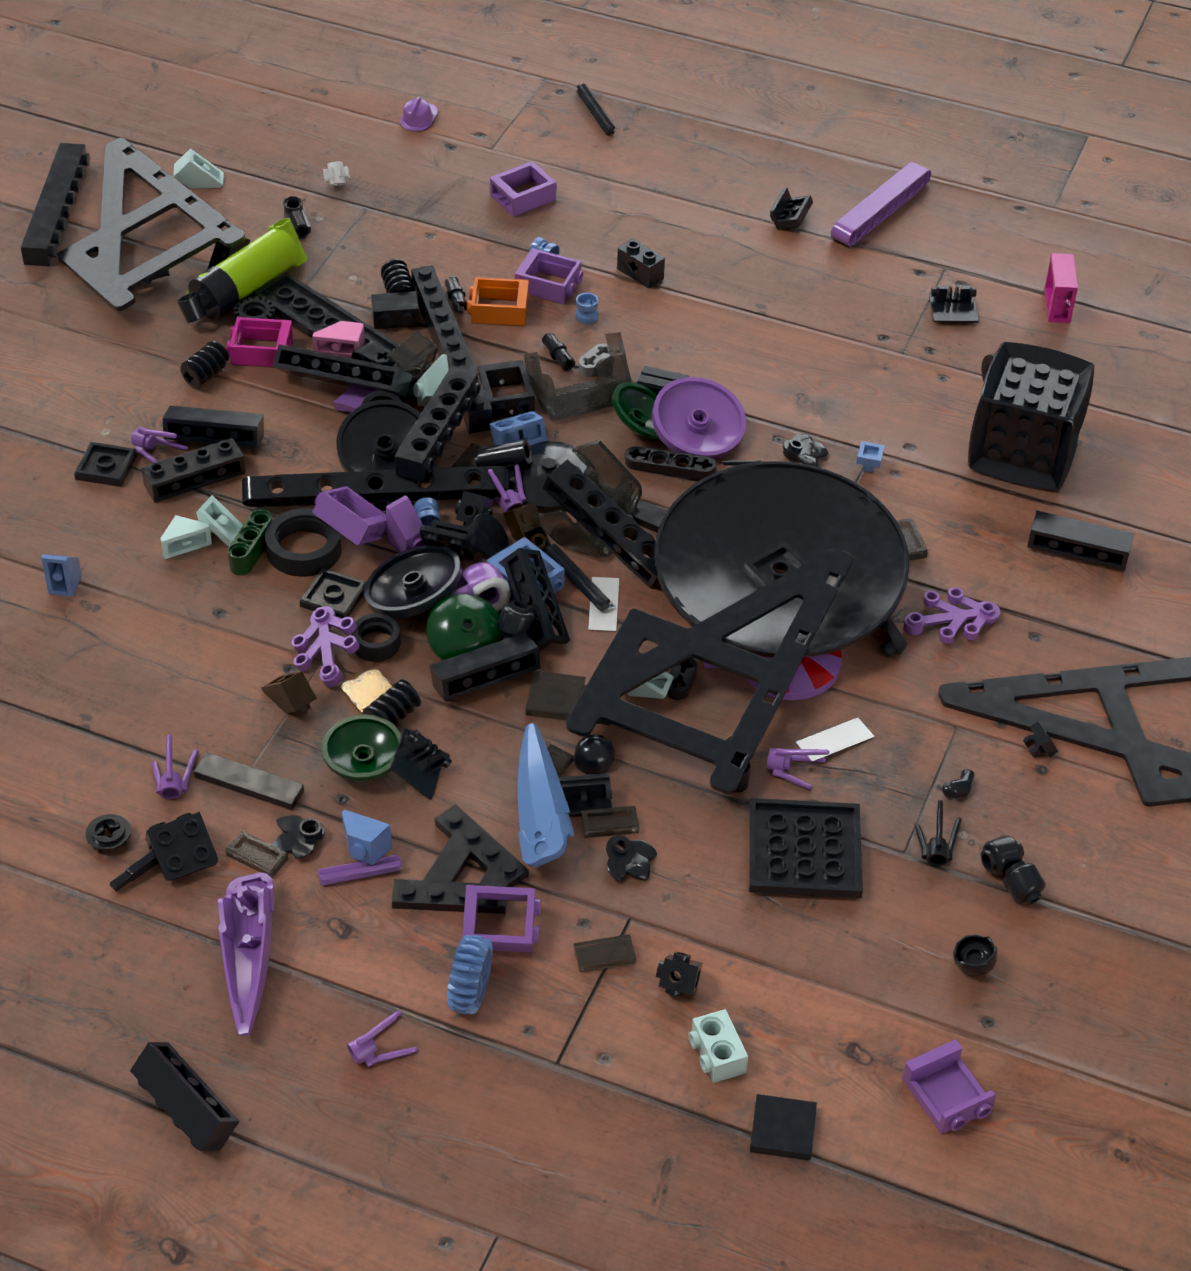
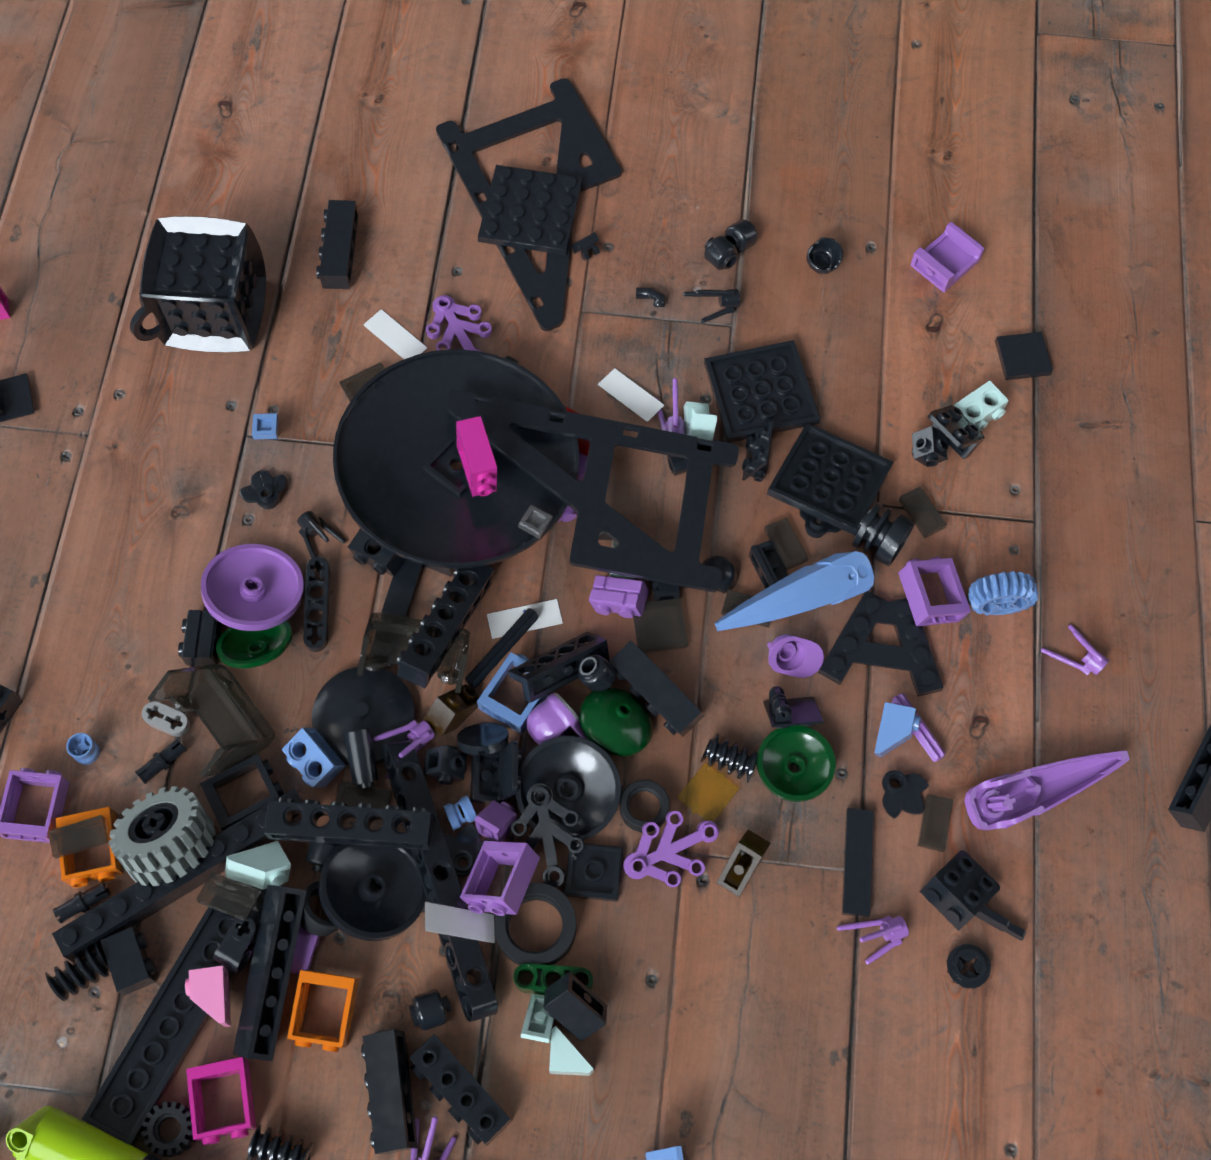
camera: 105 degrees left, 20 degrees up
(217, 538) = (575, 1006): none -> black brick
(266, 461) = (429, 1009): none -> black head
(320, 397) = (306, 1039): none -> orange window
(326, 473) = (459, 922): none -> white sticker
(376, 558) = (547, 829): none -> black plant
(479, 781) = (795, 656): none -> medium lavender piece
(482, 324) = (162, 836): none -> light grey wheel
(505, 286) = (78, 836): none -> clear smoke tile
(582, 889) = (883, 533): none -> black wheel
(585, 662) = (618, 596): none -> medium lavender brick
(670, 871) = (830, 478): none -> black plate
(686, 595) = (535, 521): none -> flat silver tile
(688, 990) = (959, 432): none -> black bracket
(730, 814) = (757, 453): none -> black hinge
(762, 562) = (476, 456): none -> dark pink window
(775, 781) = (699, 421): none -> light aqua slope
(961, 573) = (394, 335): none -> white sticker
(1102, 705) = (530, 210): none -> black plate

